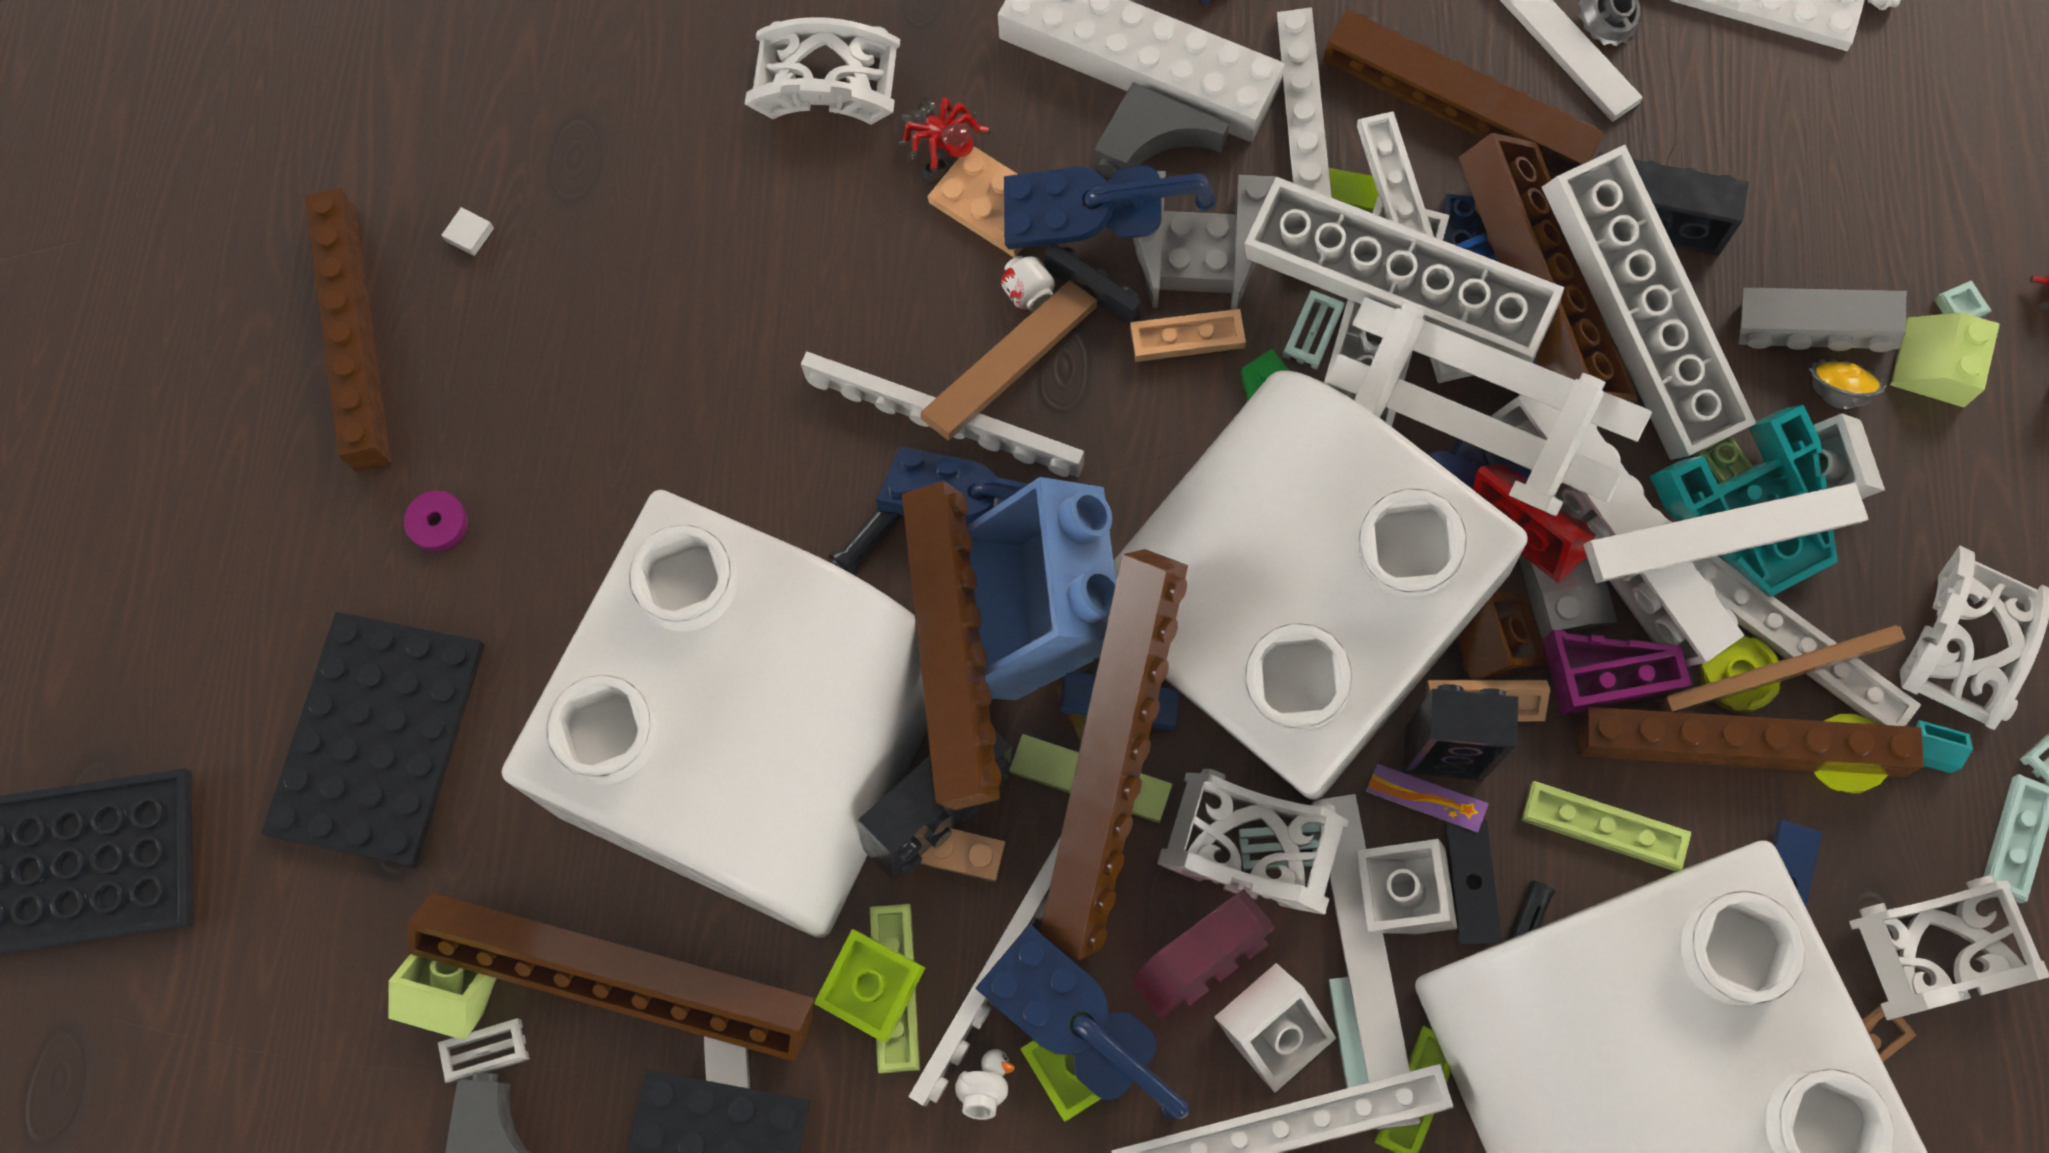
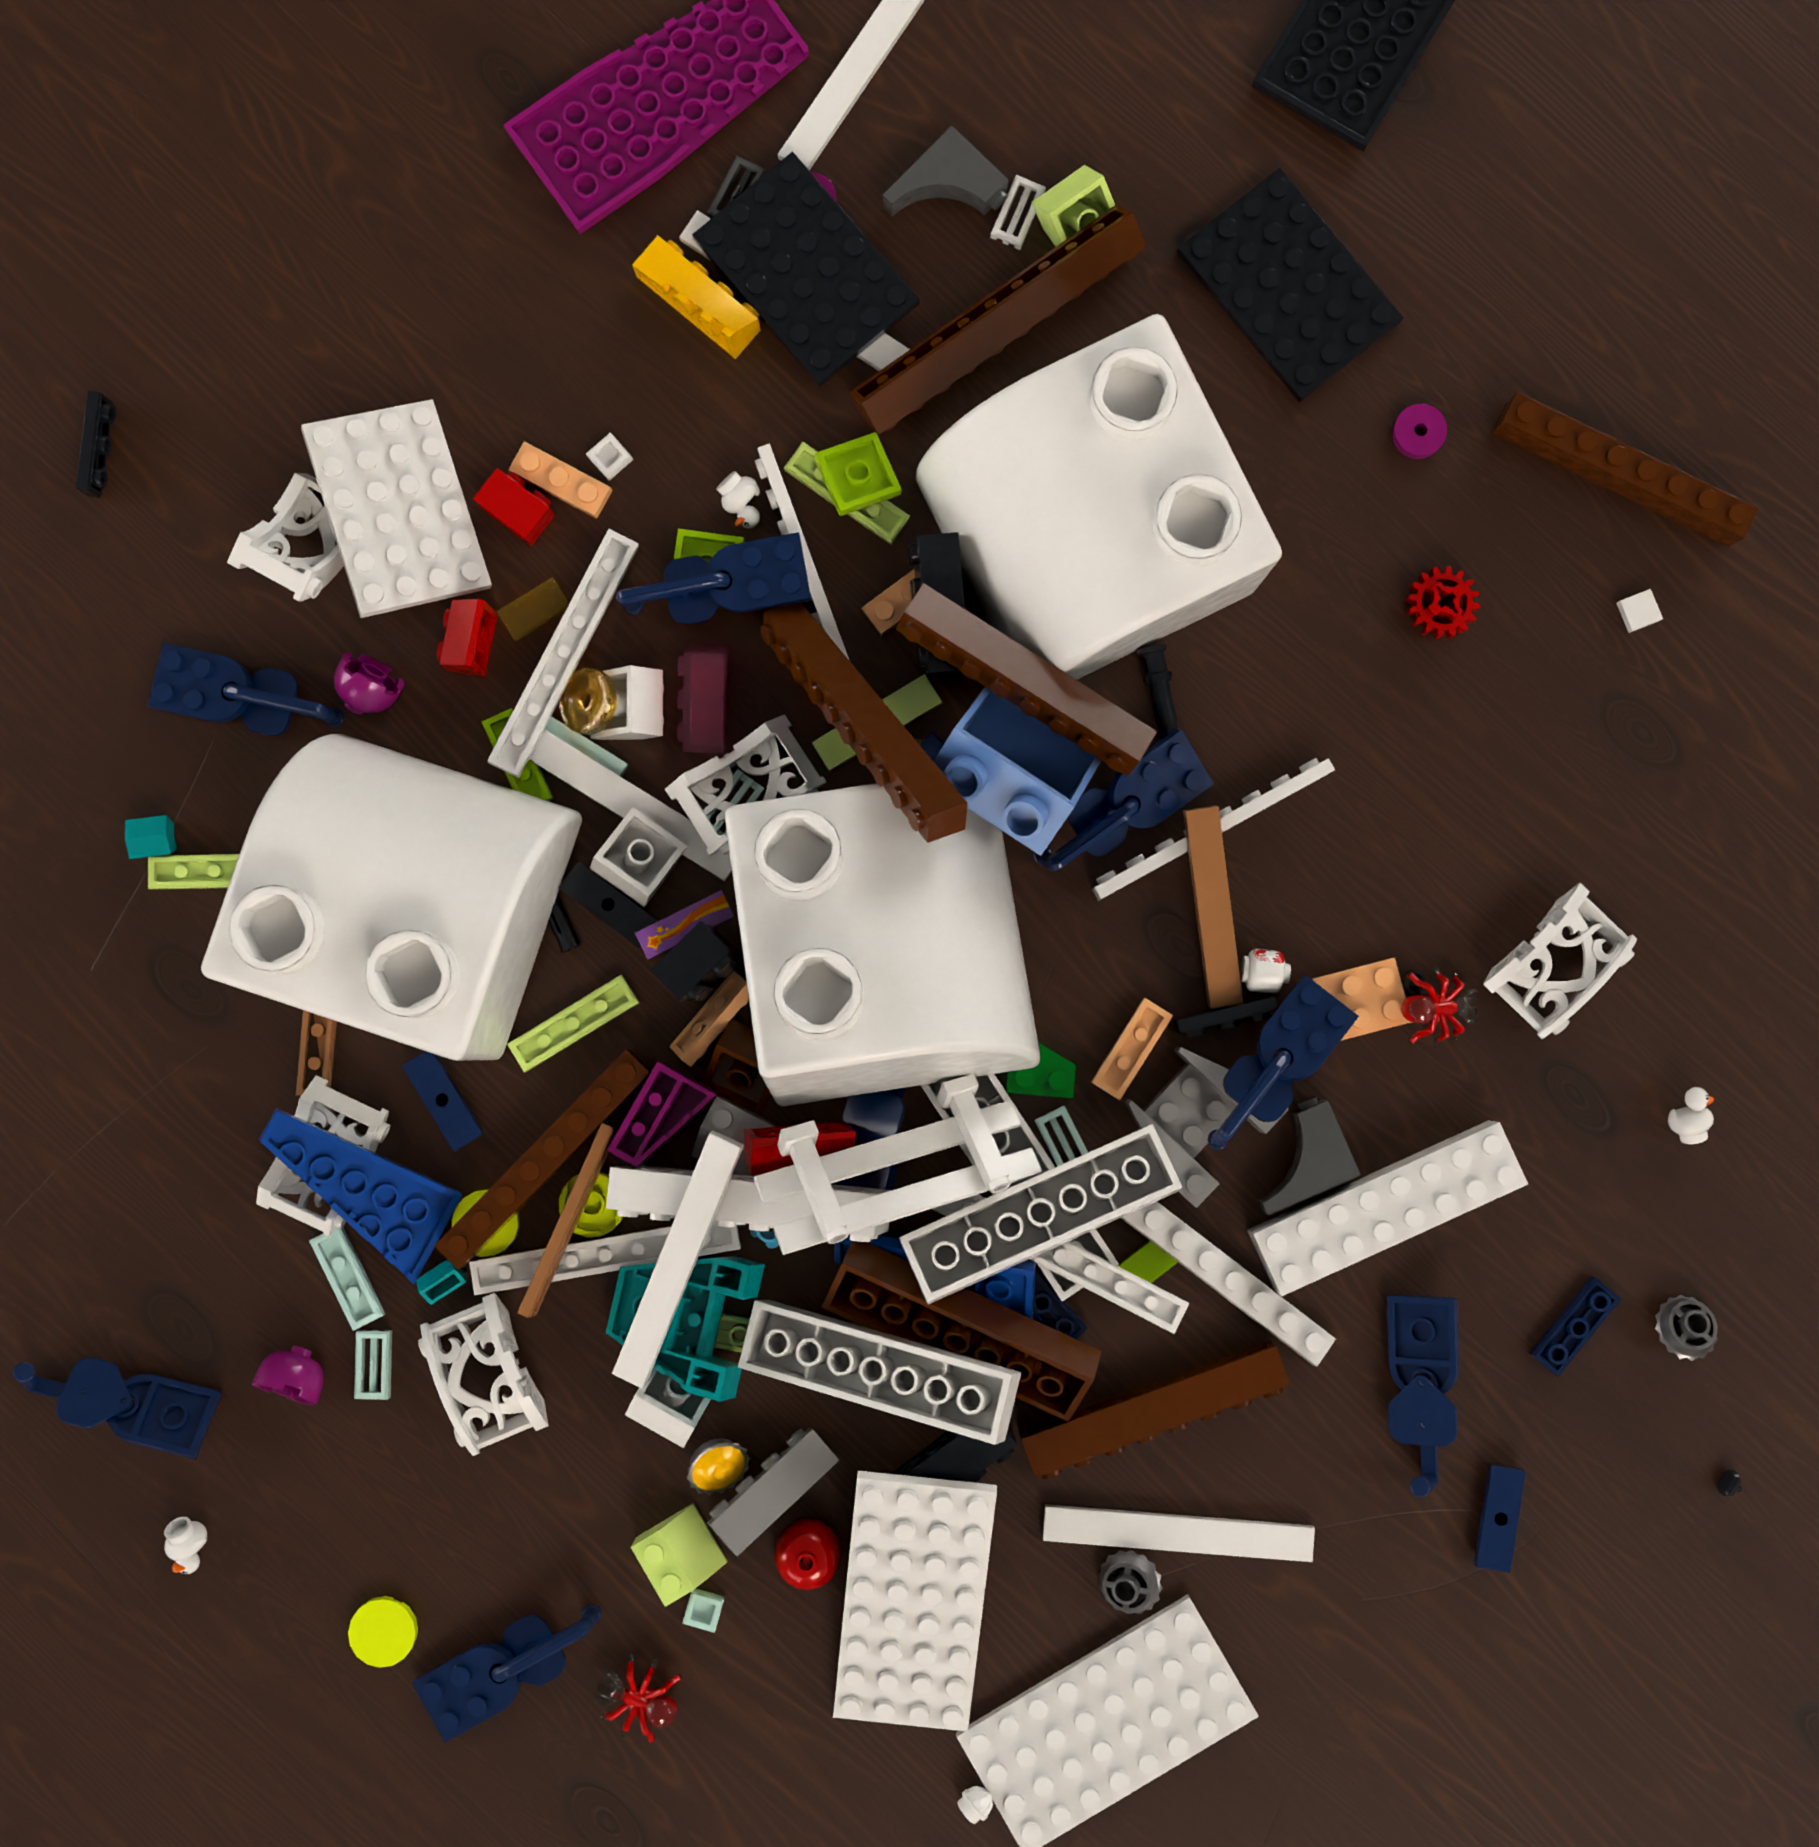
camera: 125 degrees right, 15 degrees up
(583, 383) = (1451, 612): none -> red gear
(1292, 1049) = (601, 704): none -> clear yellow tile
(1791, 140) = (914, 1600): none -> white plate
(1837, 257) = (807, 1554): none -> red cylinder
(1938, 869) = (377, 1197): none -> blue wing

